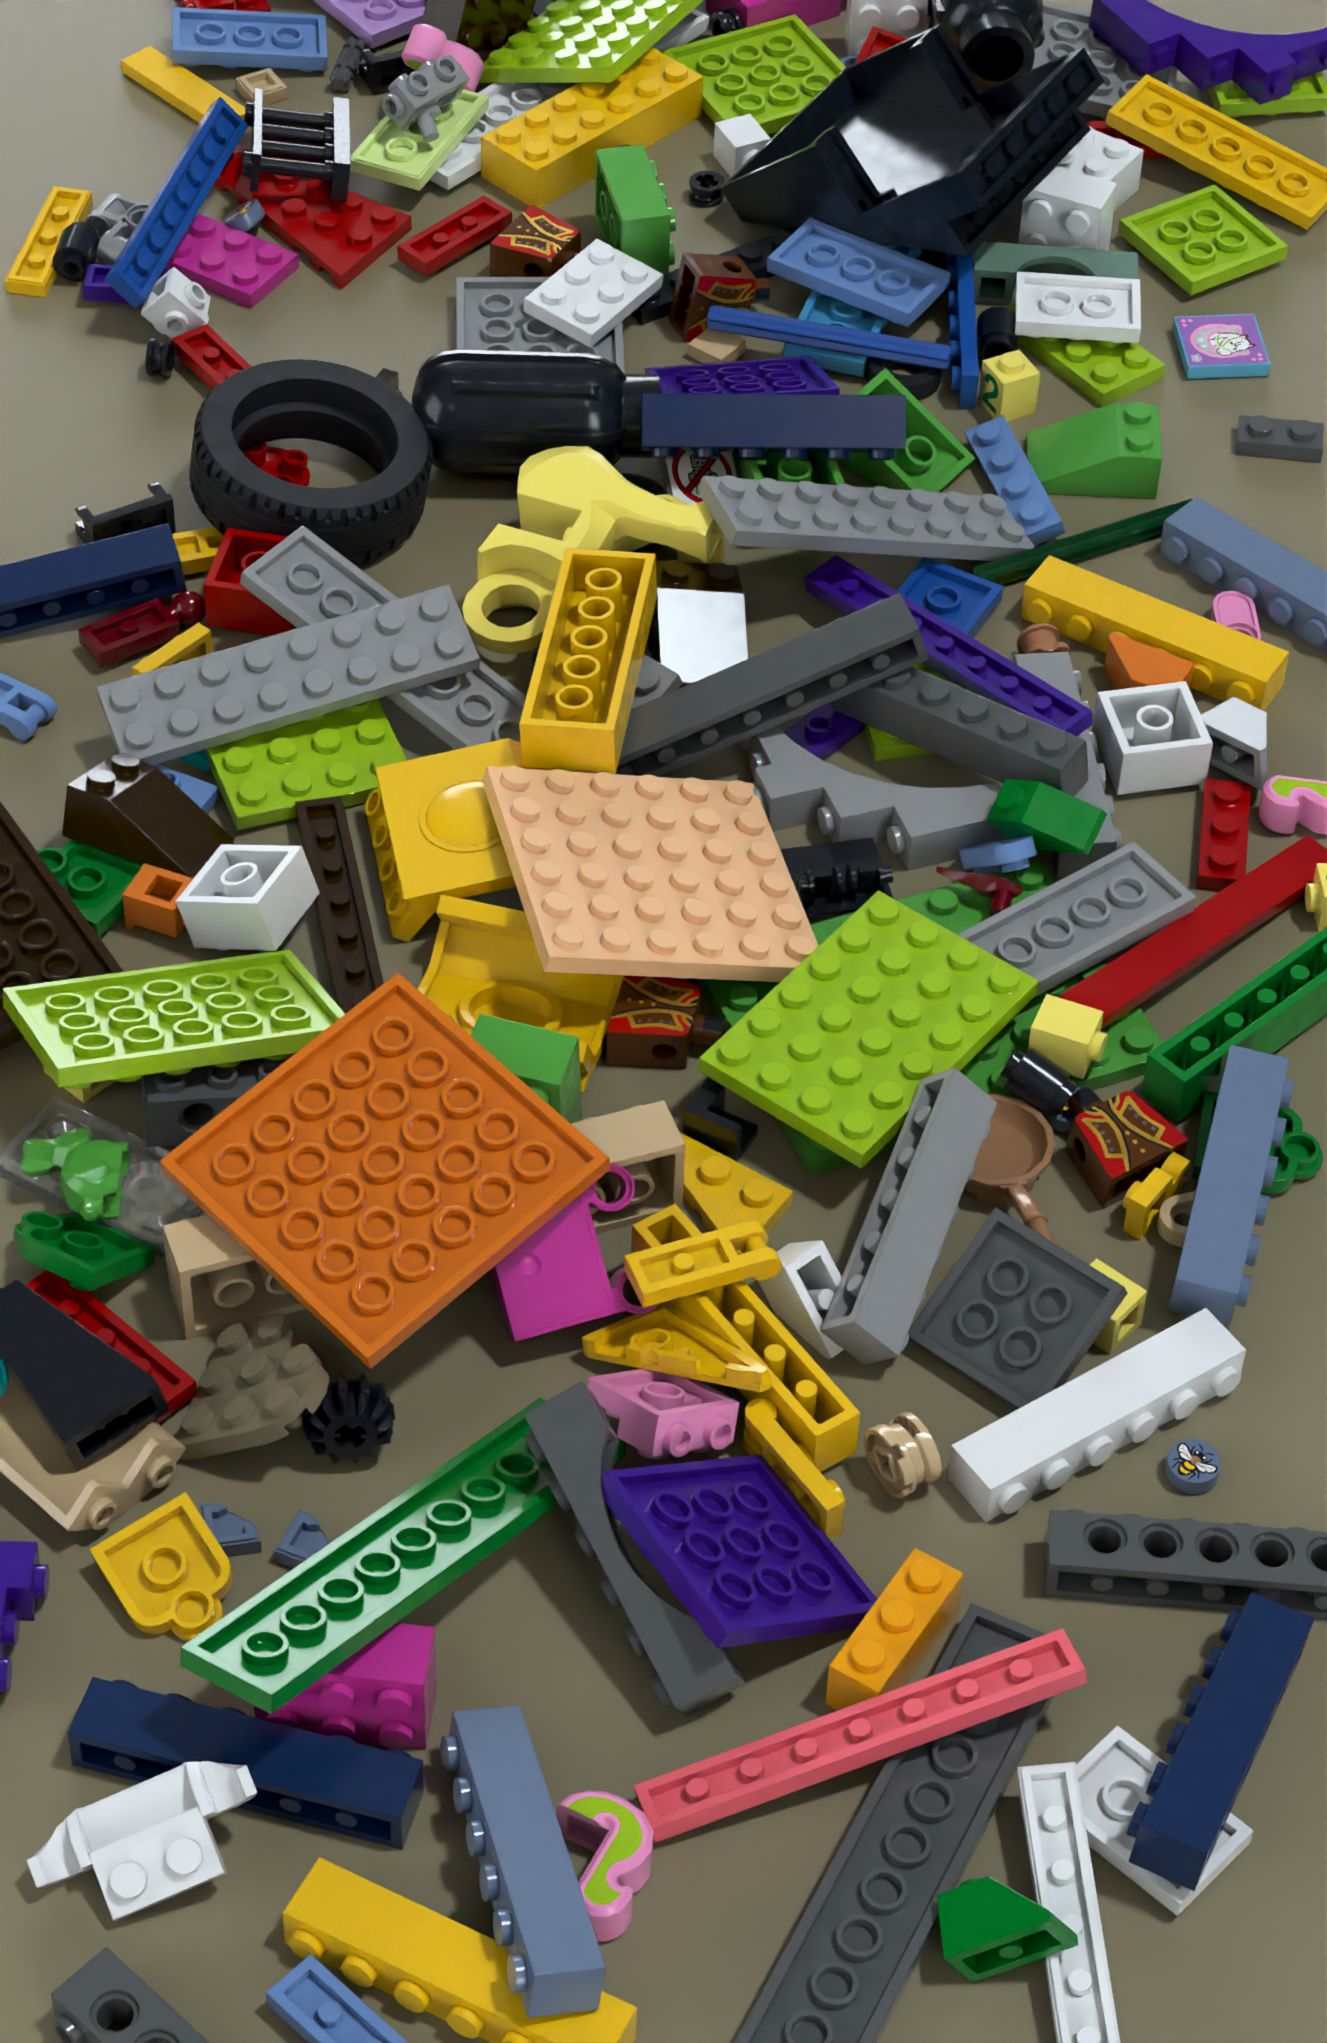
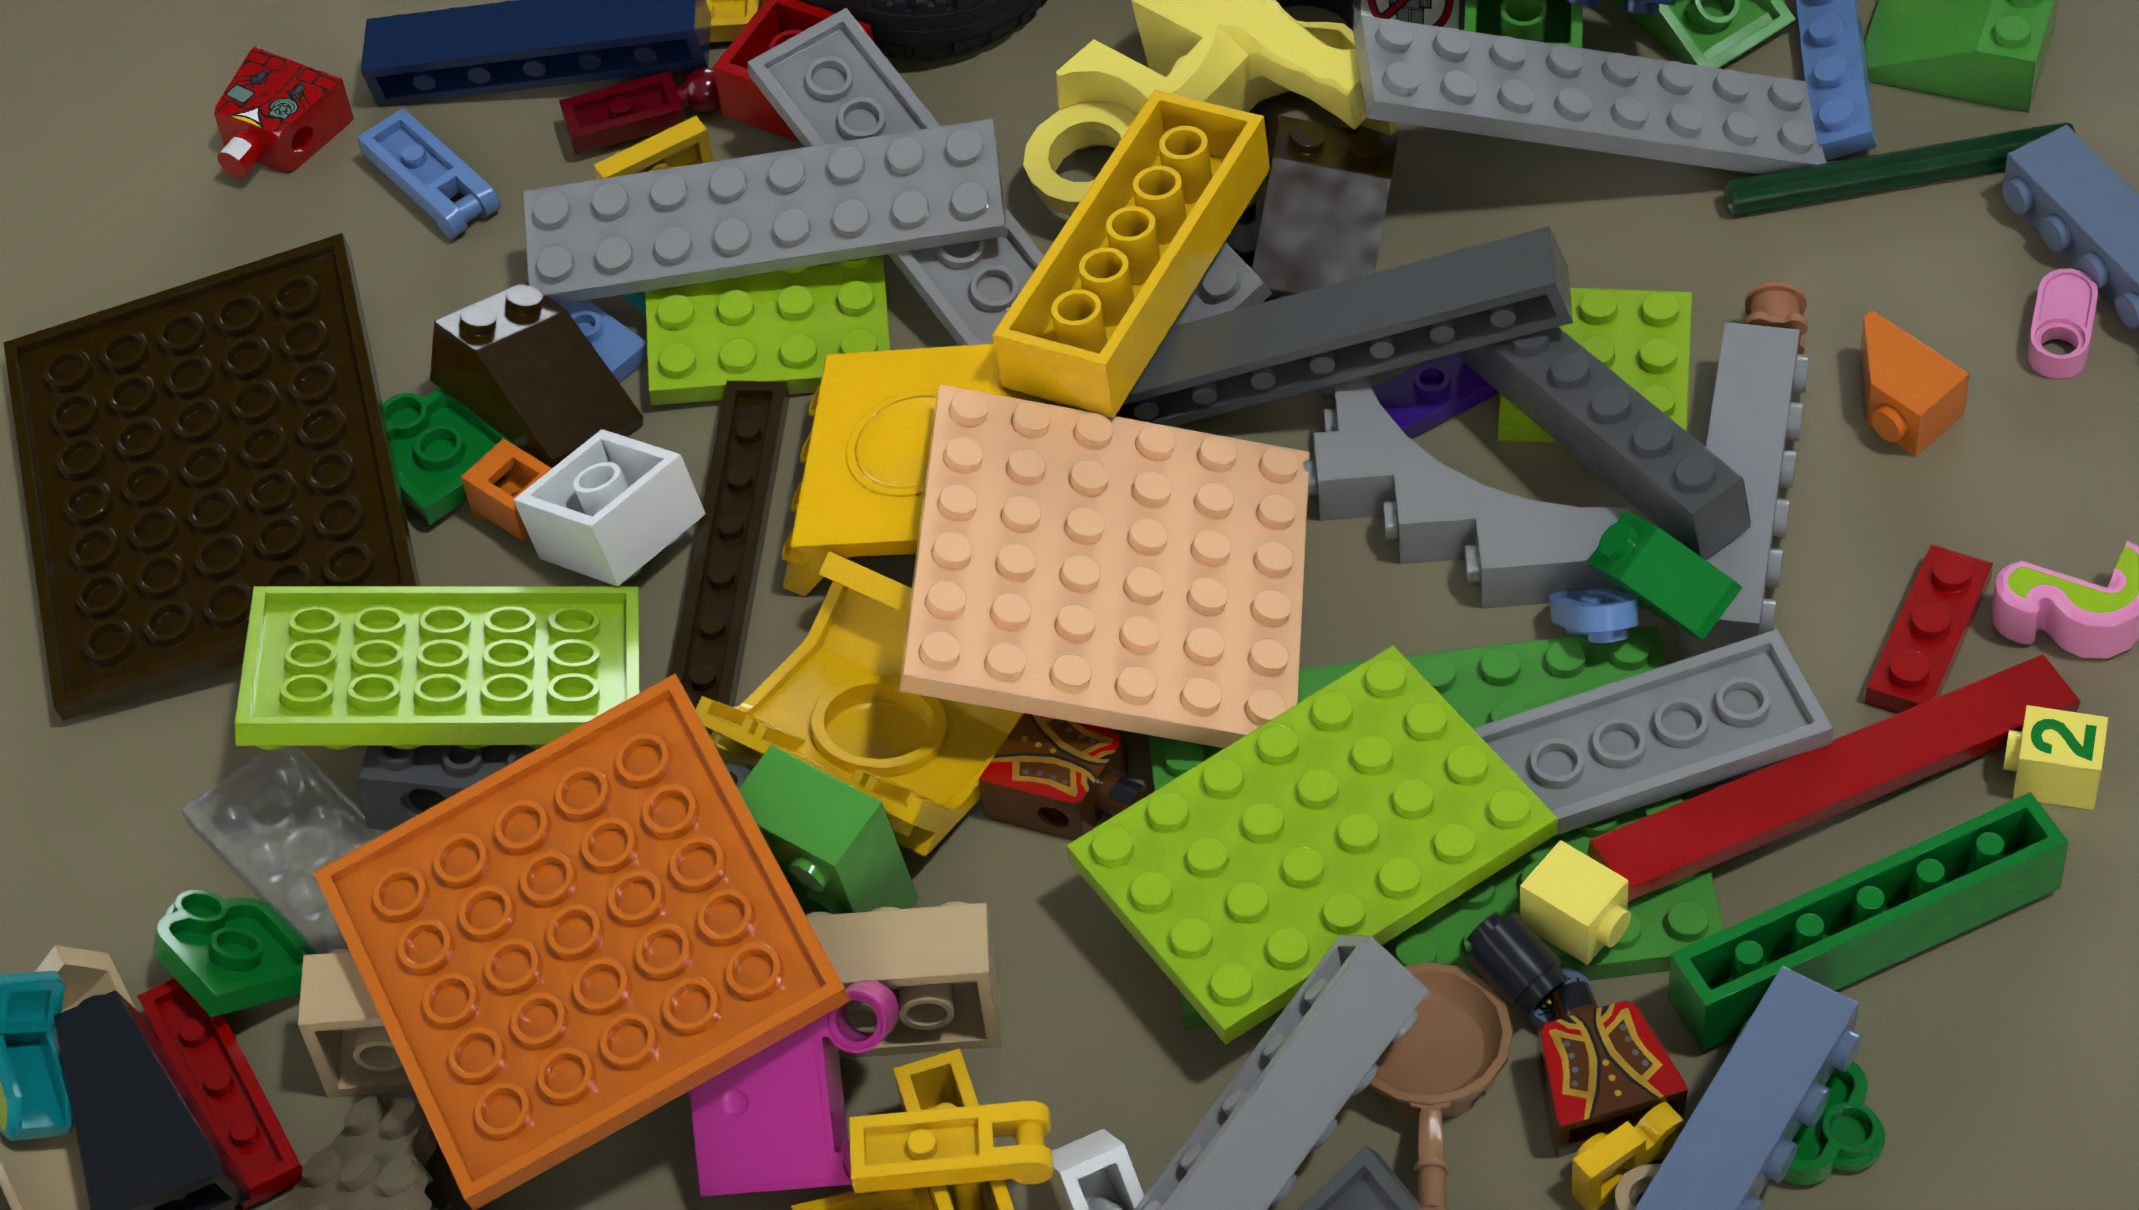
camera: 25 degrees right, 5 degrees up
(89, 1170) = (273, 851): bright green animal -> none
(712, 1126) = (1082, 936): black panel -> none
(729, 1191) = (1064, 1037): yellow wing -> none
(837, 875) = (1378, 602): black hinge -> none
(952, 594) = (1669, 227): blue plate -> none
(953, 651) = (1637, 308): dark purple plate -> none
(993, 886) = (1573, 664): dark red bar -> none
(1093, 607) = (2012, 366): yellow brick -> none
(1152, 737) = (1871, 474): white brick -> none
(1239, 740) = (1991, 496): light grey slope -> none

